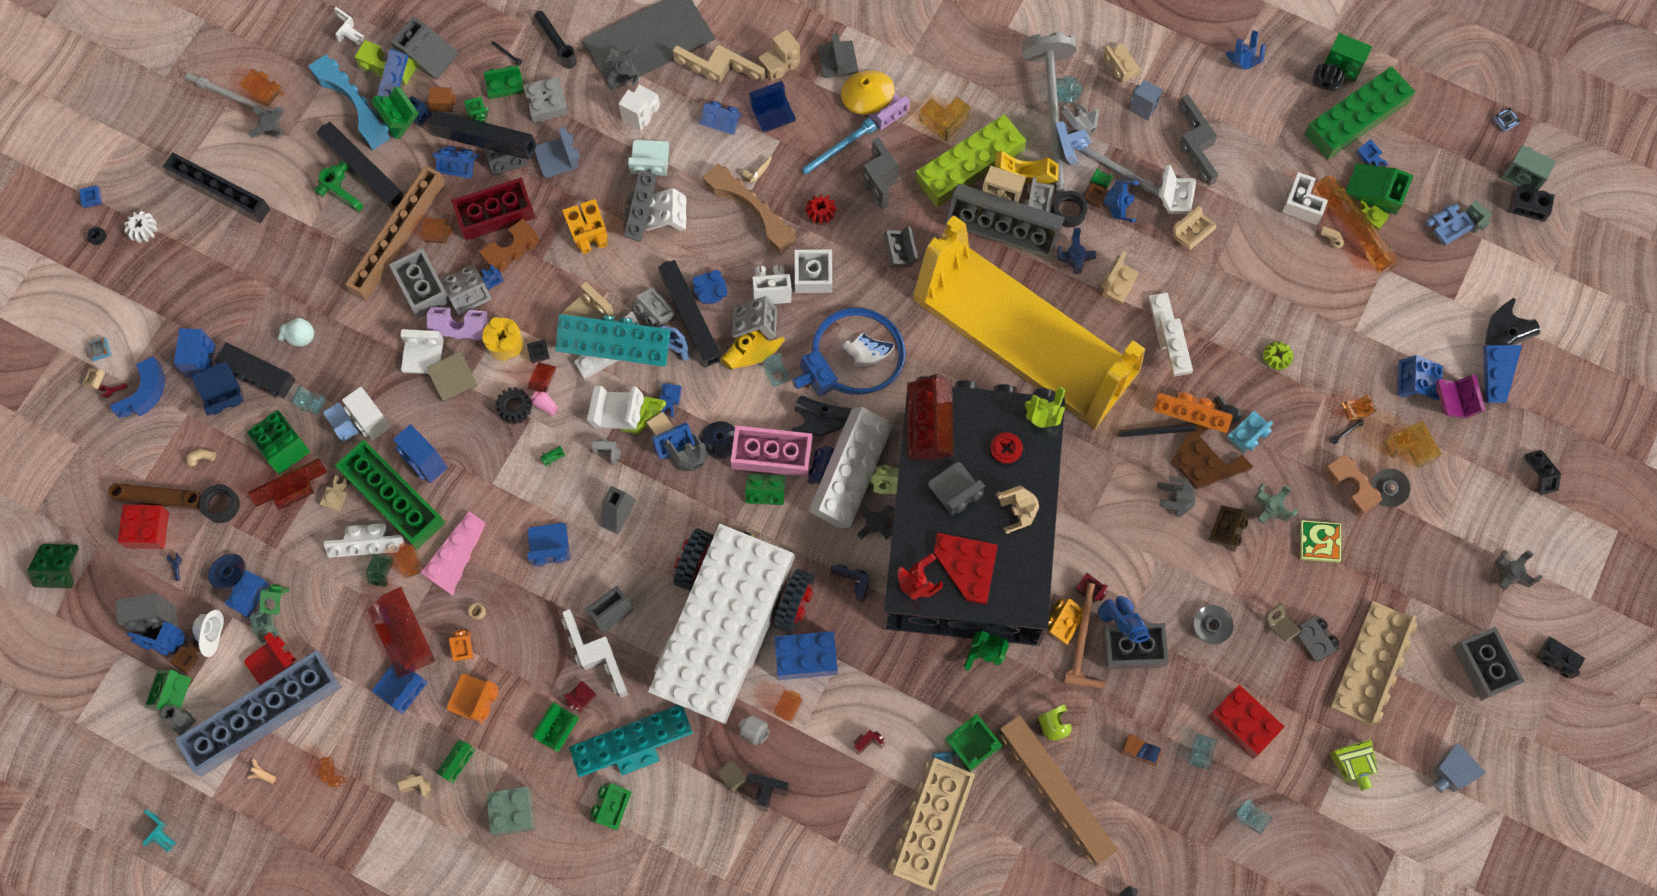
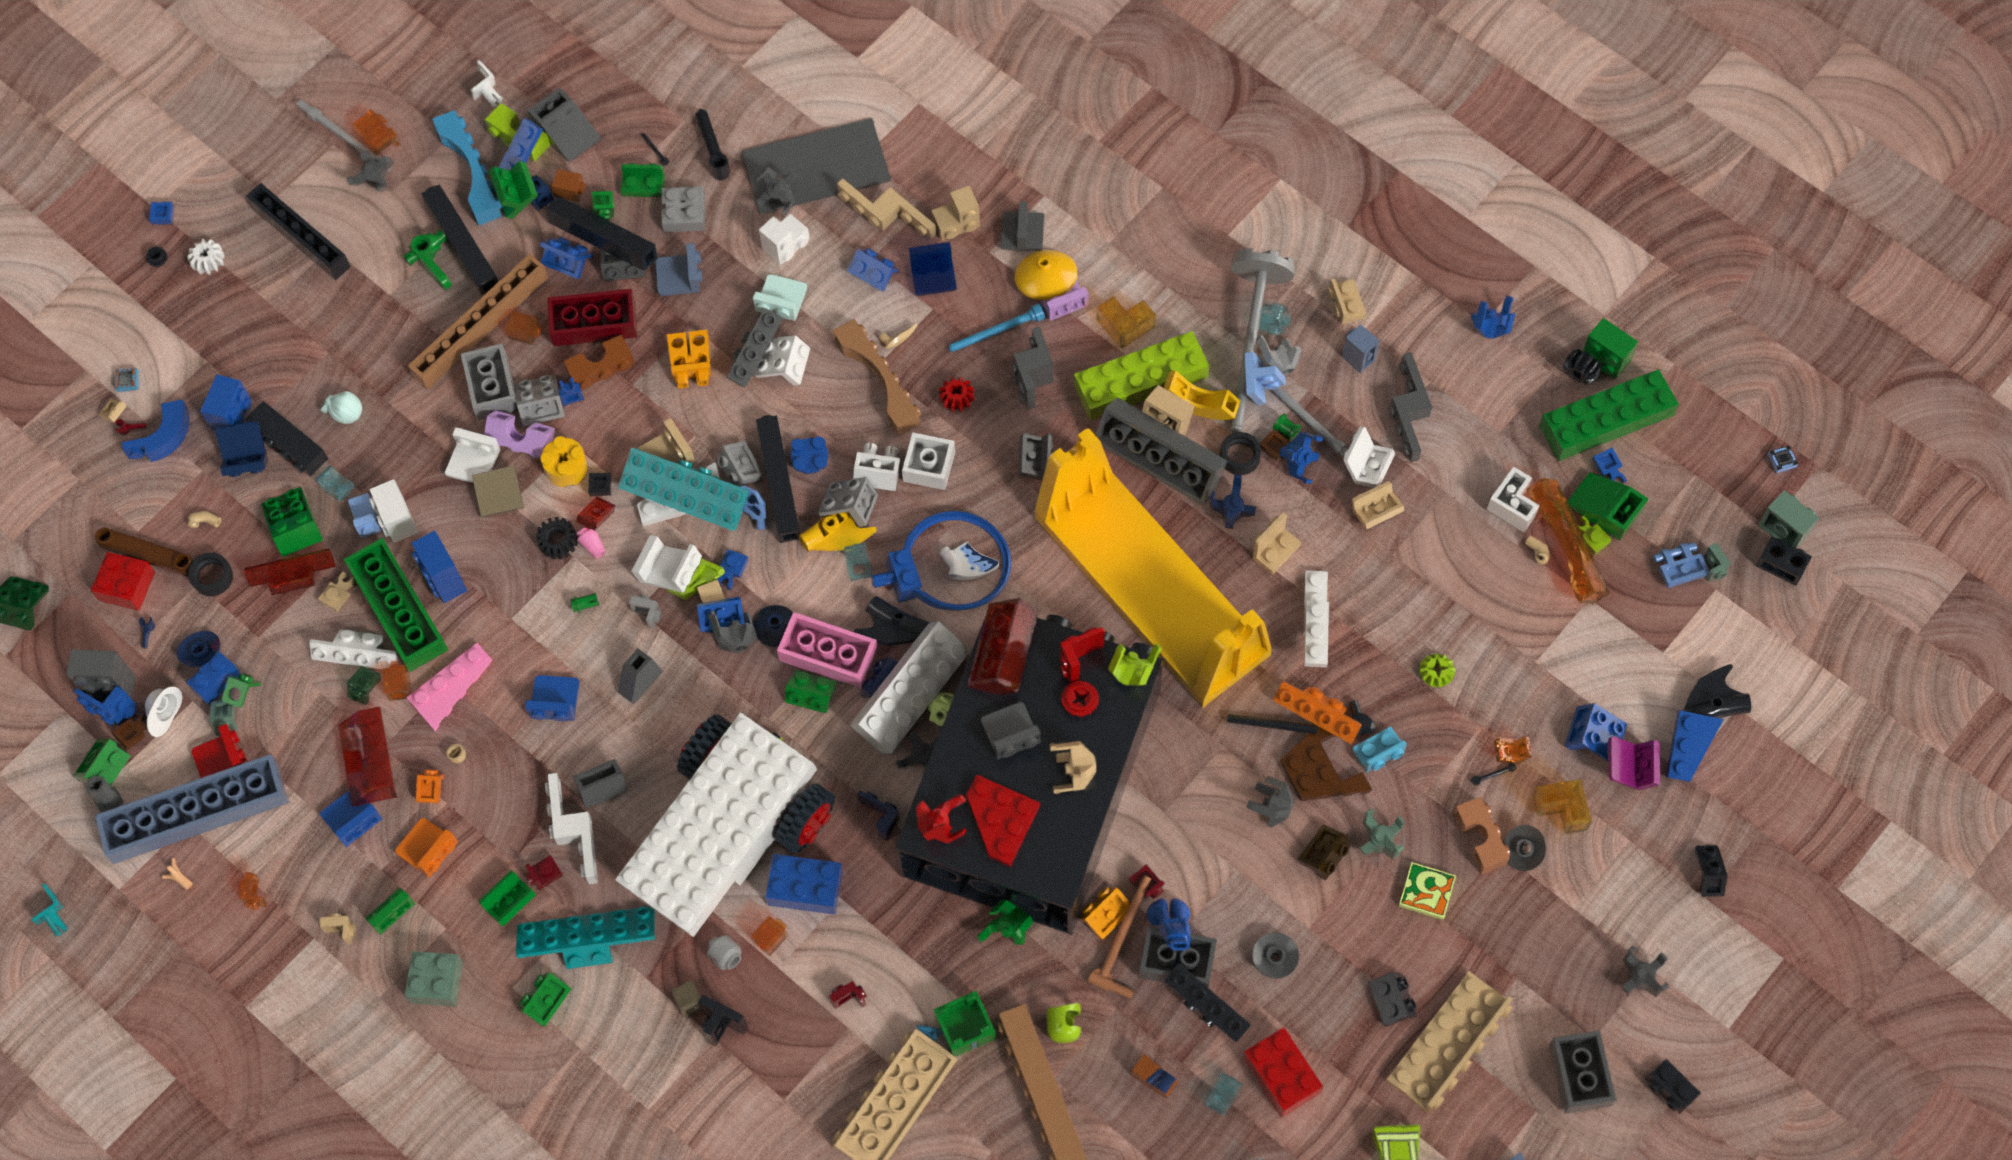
camera: 15 degrees right, 5 degrees down
(990, 417) = (1078, 646): none -> red bracket
(1040, 195) = (1209, 431): light grey bracket -> none
(1170, 678) = (1207, 1002): none -> black bracket
(1281, 624) = (1355, 973): dark tan bracket -> none

